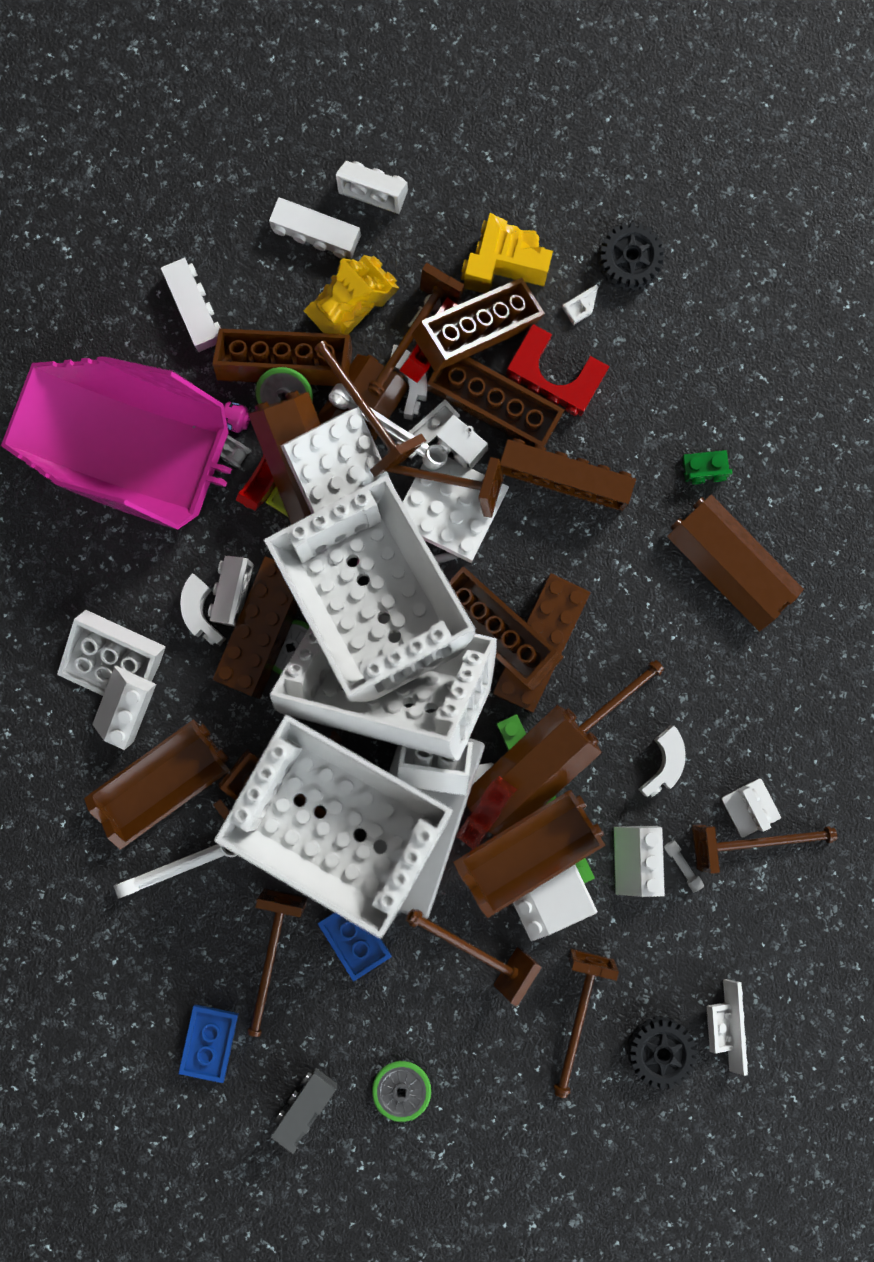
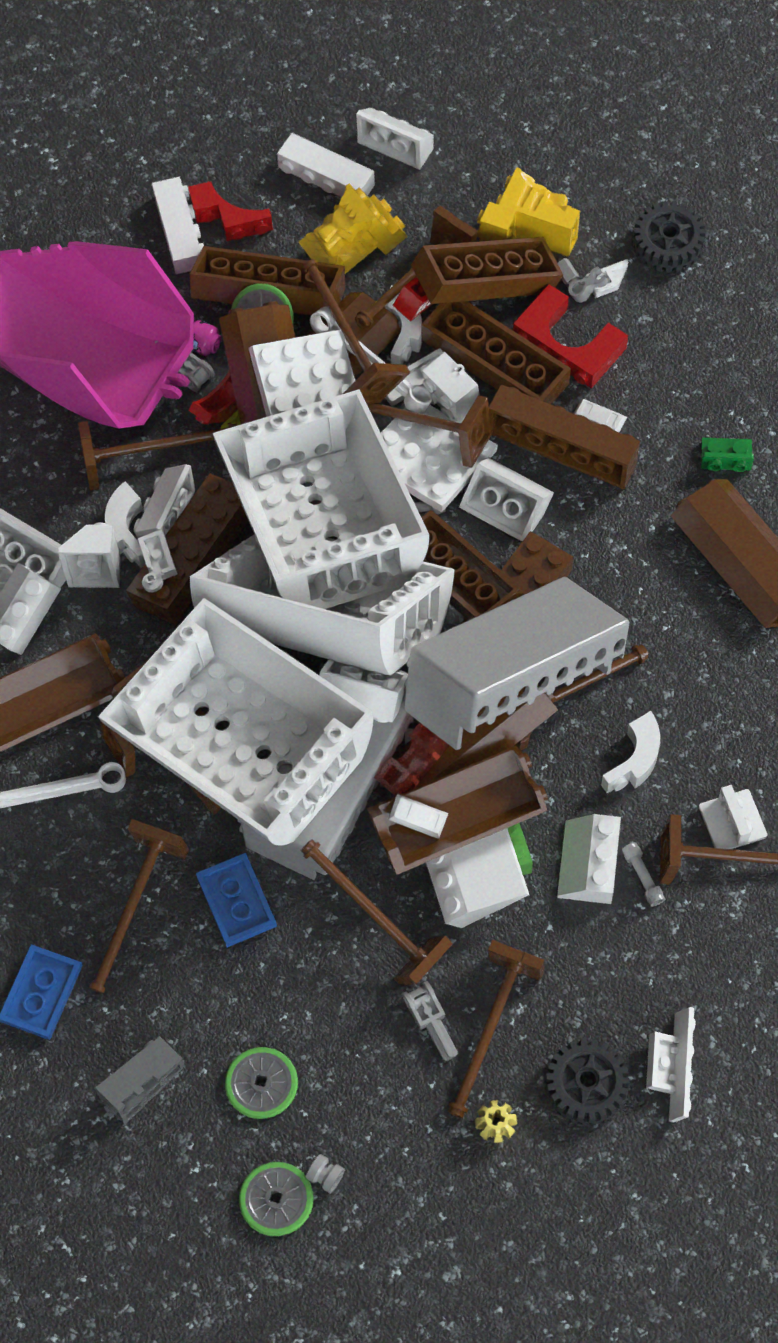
camera: 15 degrees right, 20 degrees down
(159, 551) = (93, 455): none -> reddish brown tile
(178, 654) = (91, 557): none -> white slope
(235, 653) = (158, 560): none -> white hinge
(243, 294) = (235, 221): none -> red arch
(431, 1170) = (271, 1217): none -> flat silver wheel
(465, 1161) = (325, 1173): none -> light grey wheel
(497, 863) = (418, 816): none -> white tile
(524, 539) = (505, 499): none -> white slope
(527, 1016) = (428, 1014): none -> light grey connector
(560, 321) = (580, 288): none -> light grey bar
(560, 720) = (509, 650): none -> light grey container
(590, 1093) = (502, 1128): none -> light yellow piece
(591, 445) = (600, 414): none -> white tile

